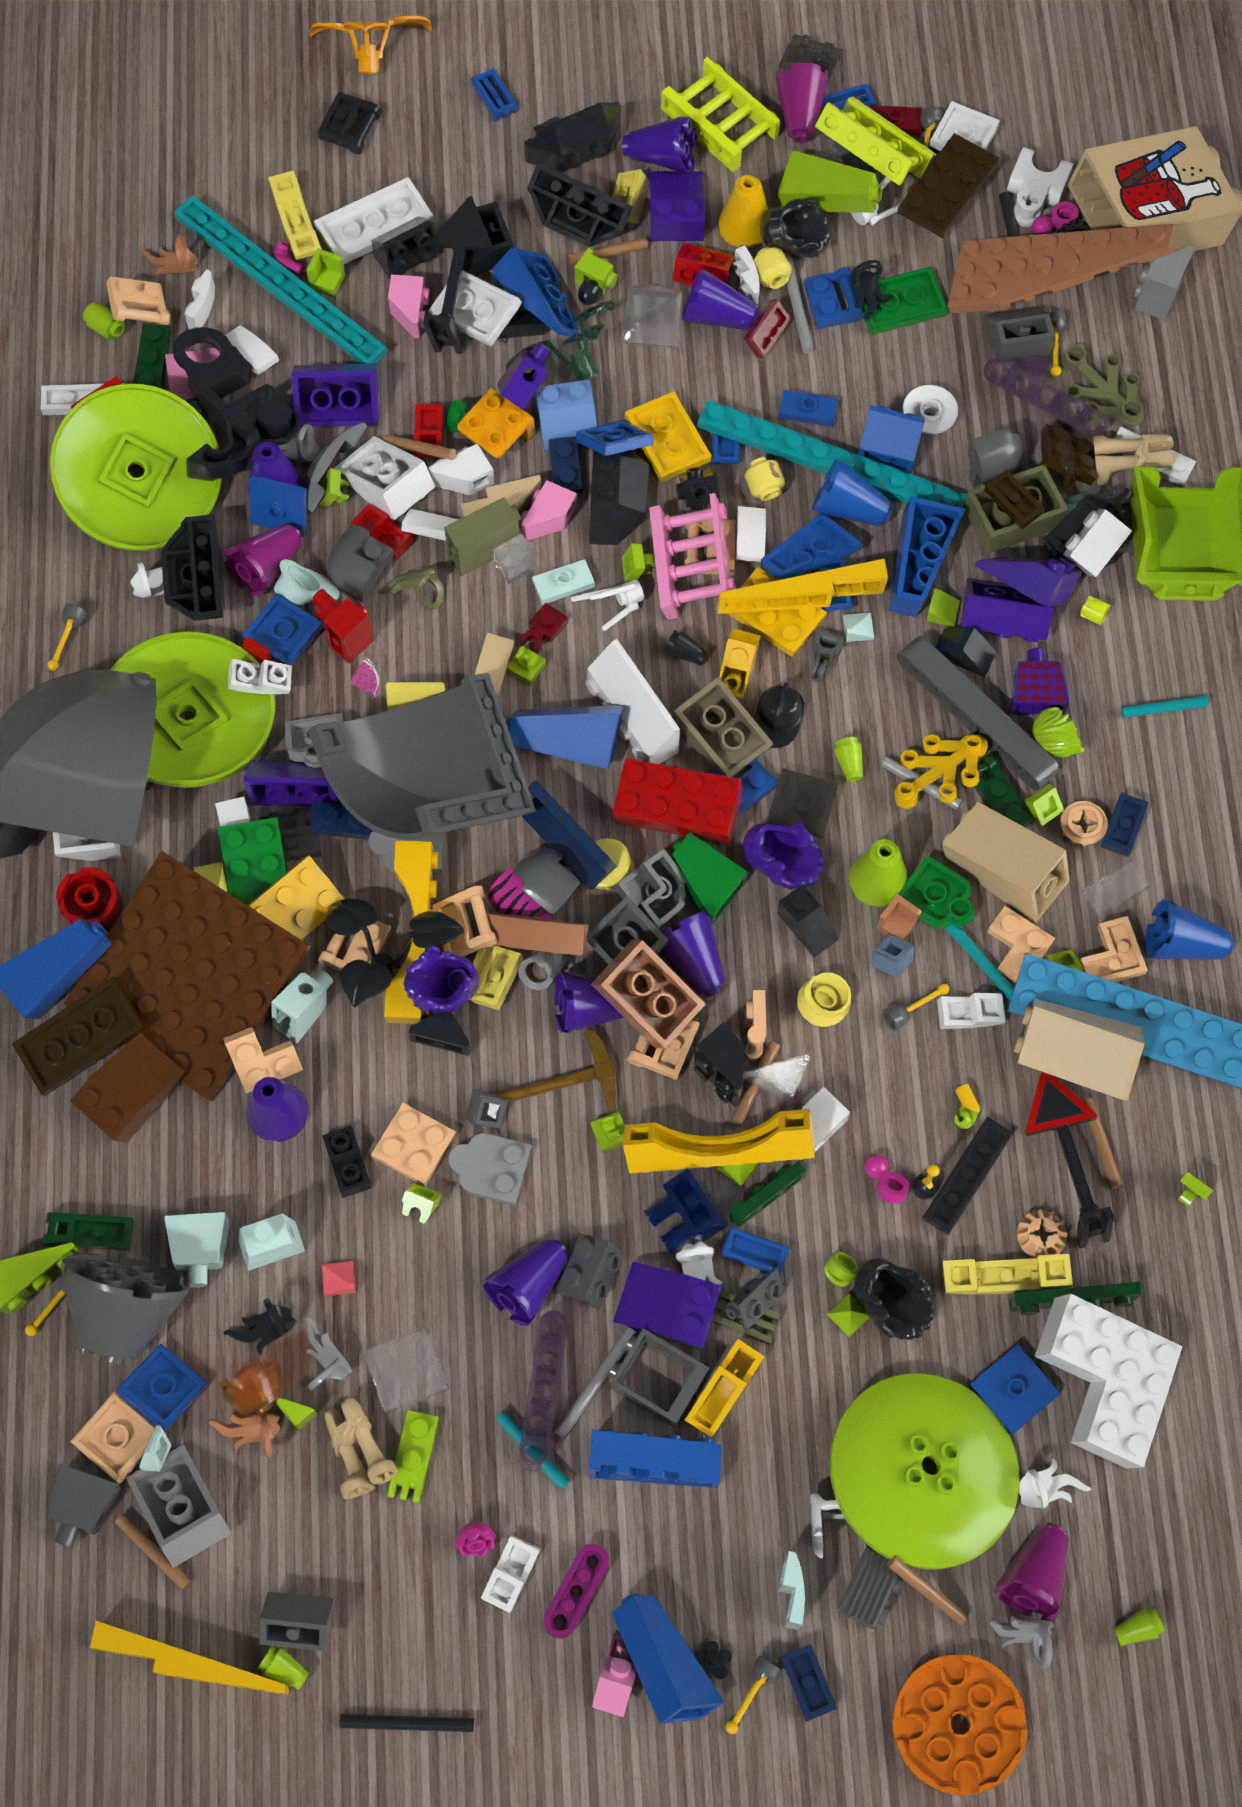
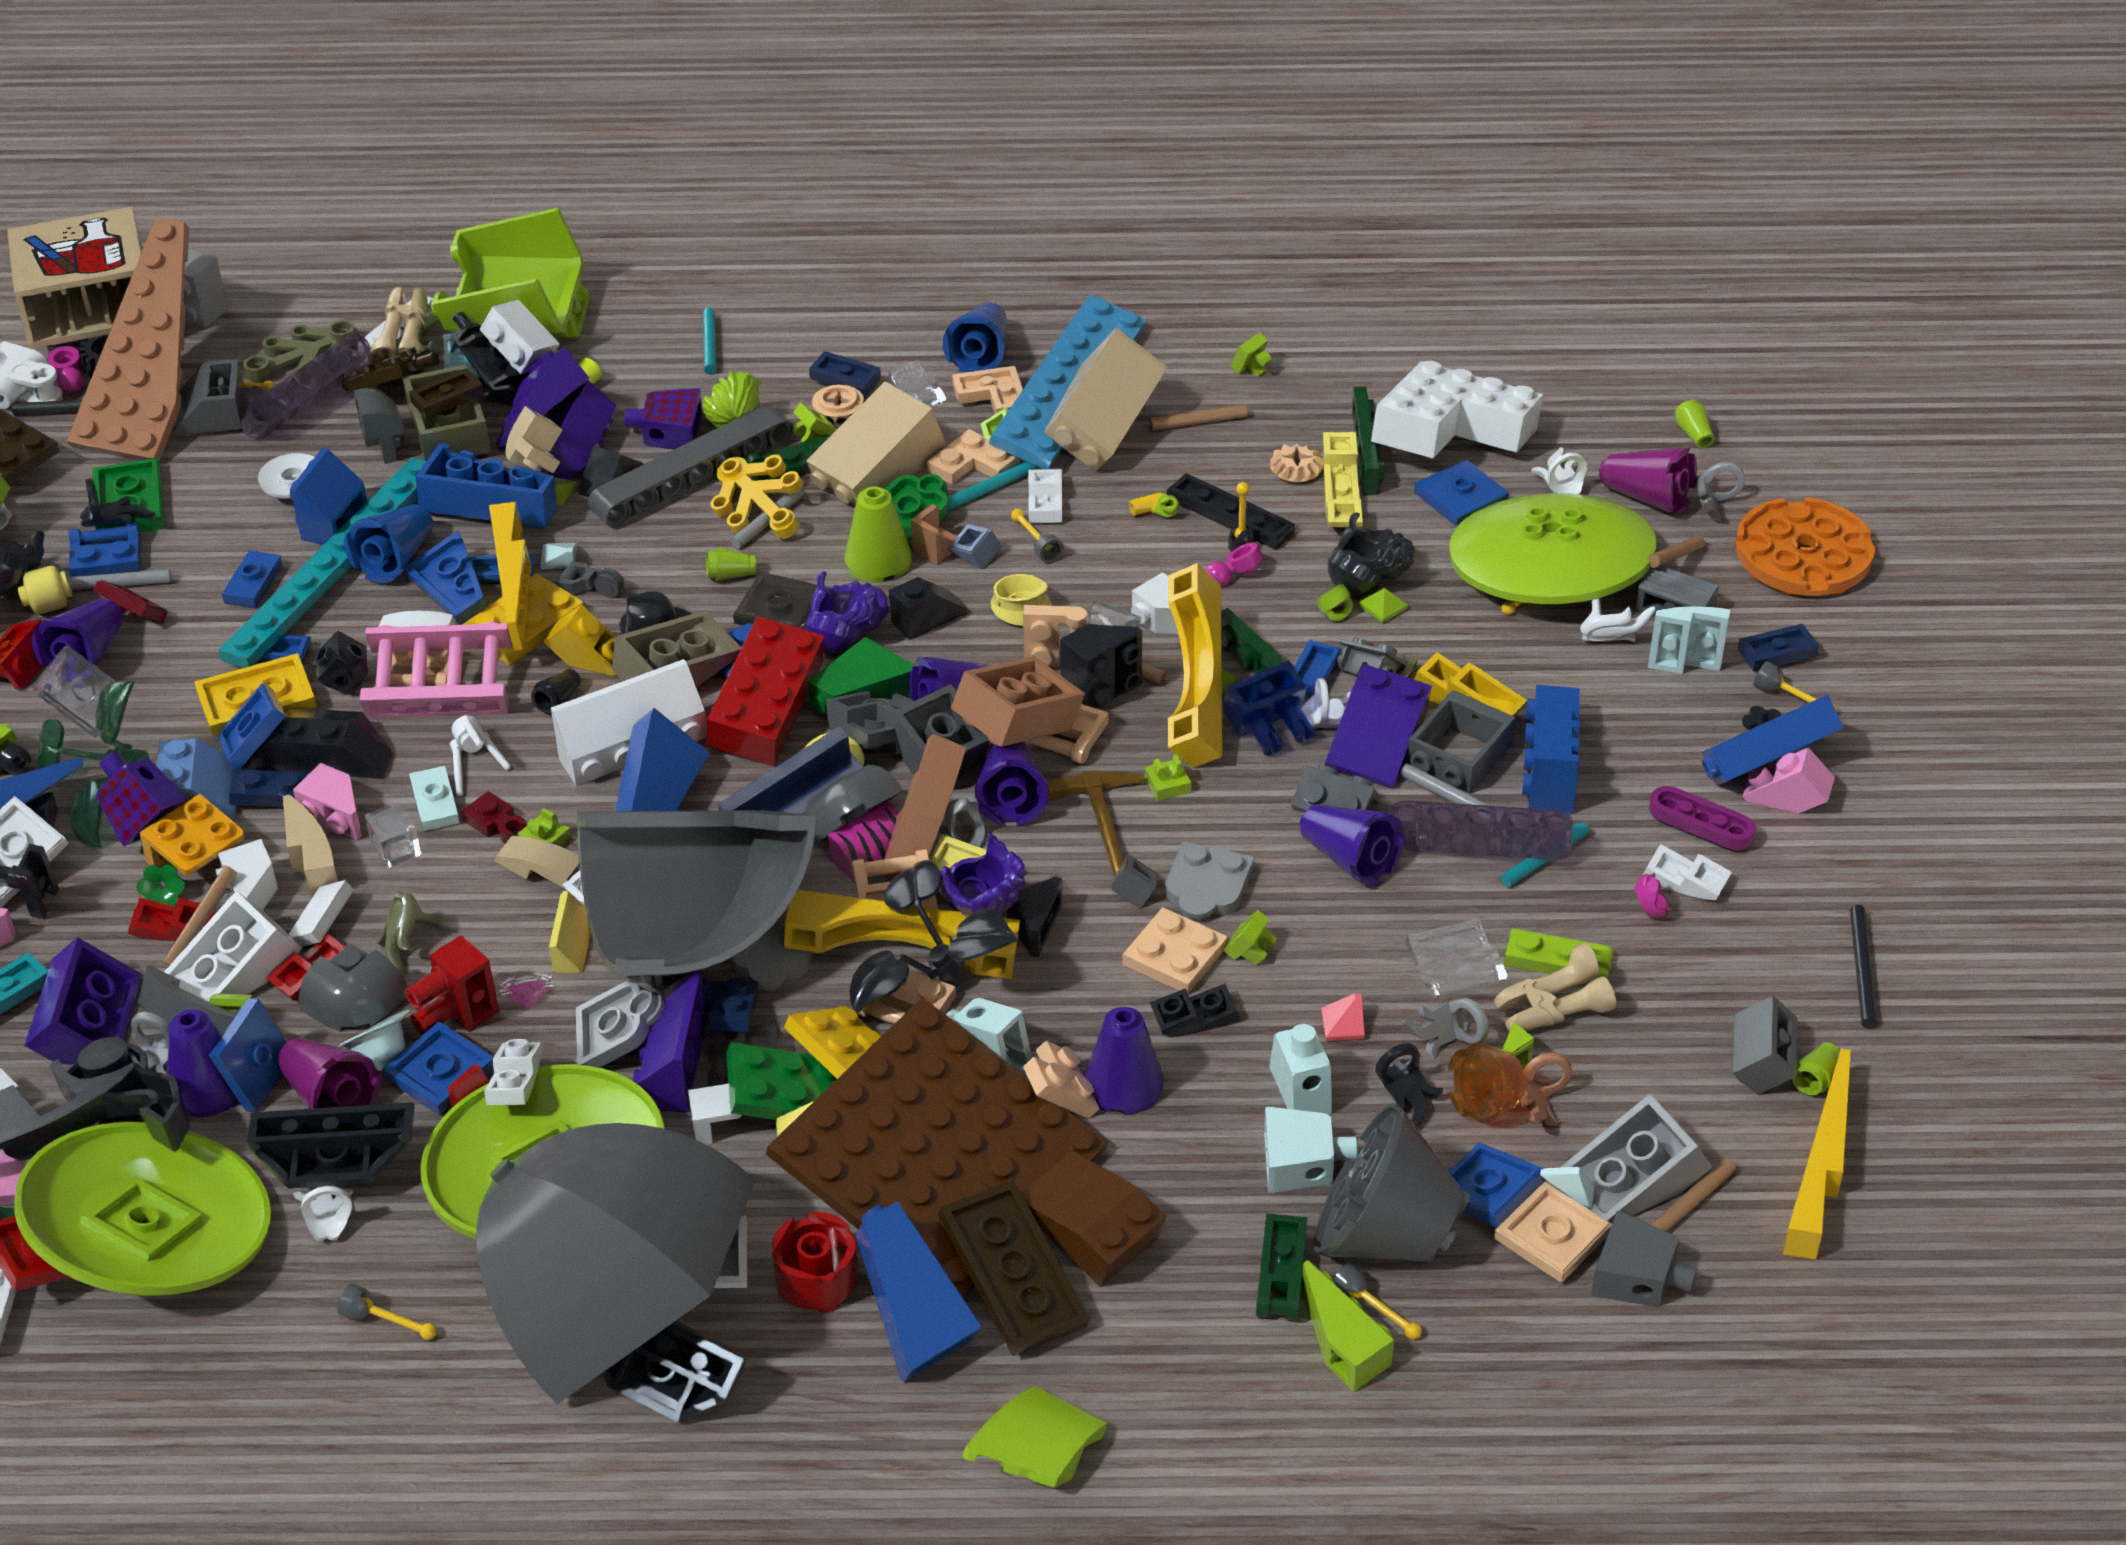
camera: 85 degrees left, 25 degrees down
(477, 534) = (359, 850): olive brick -> none
(636, 563) = (428, 727): lime tile -> none
(746, 270) = (44, 606): white slope -> none
(765, 479) = (344, 610): light yellow head -> none
(961, 577) = (532, 441): none -> tan brick
(1057, 1110) = (1164, 441): black piece -> none

